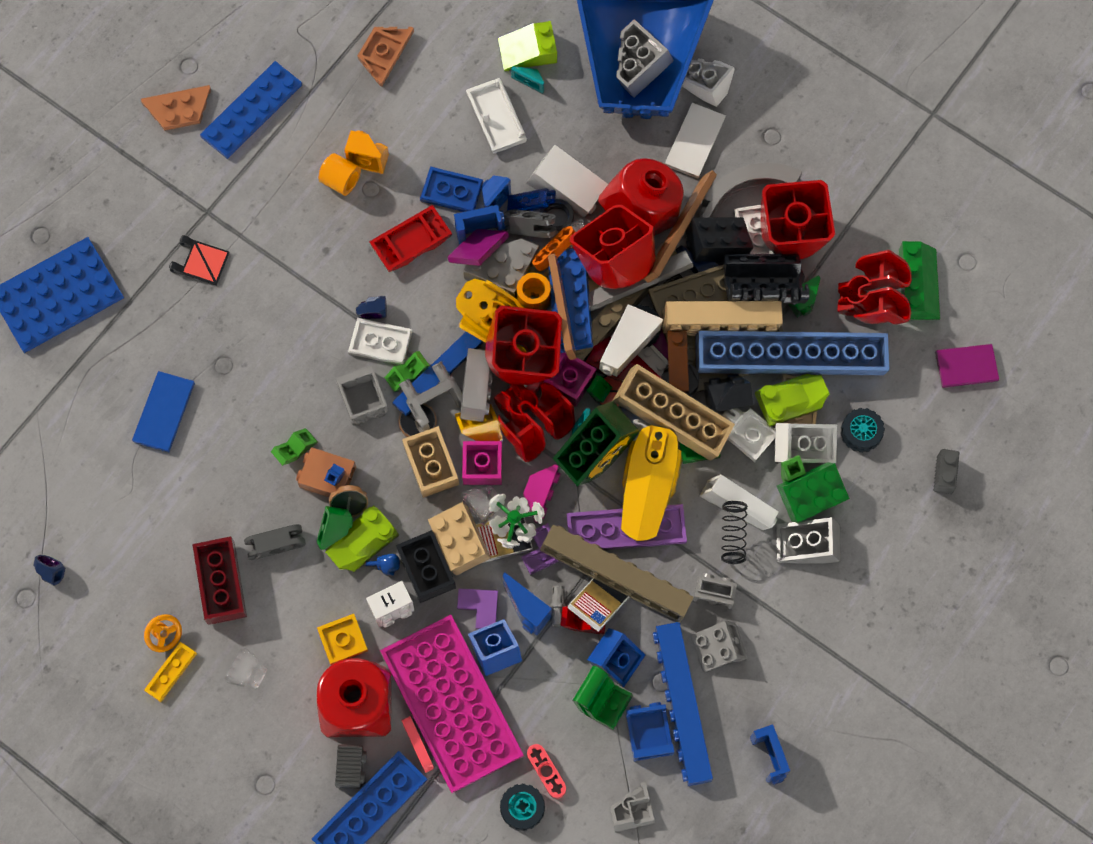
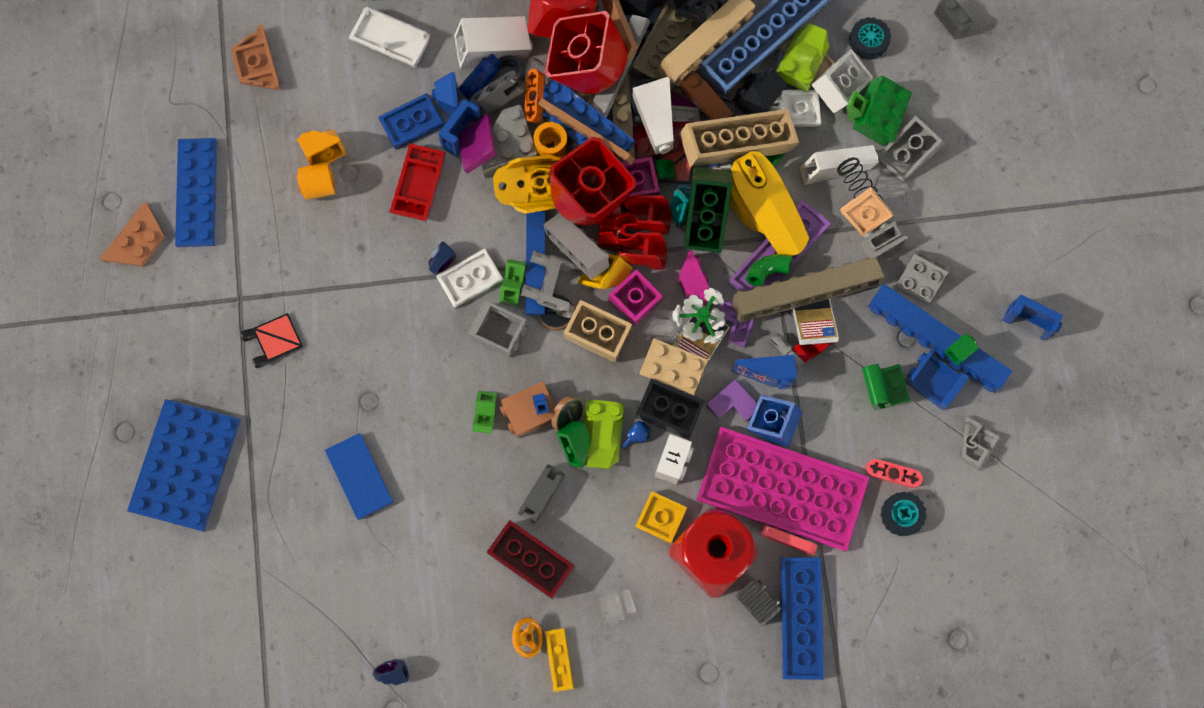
camera: 45 degrees left, 5 degrees up
(604, 528) = (768, 265): none -> green cylinder
(616, 656) = (862, 348): blue slope -> none
(687, 724) = (961, 349): none -> green brick
(720, 556) = (866, 211): none -> light nougat tile

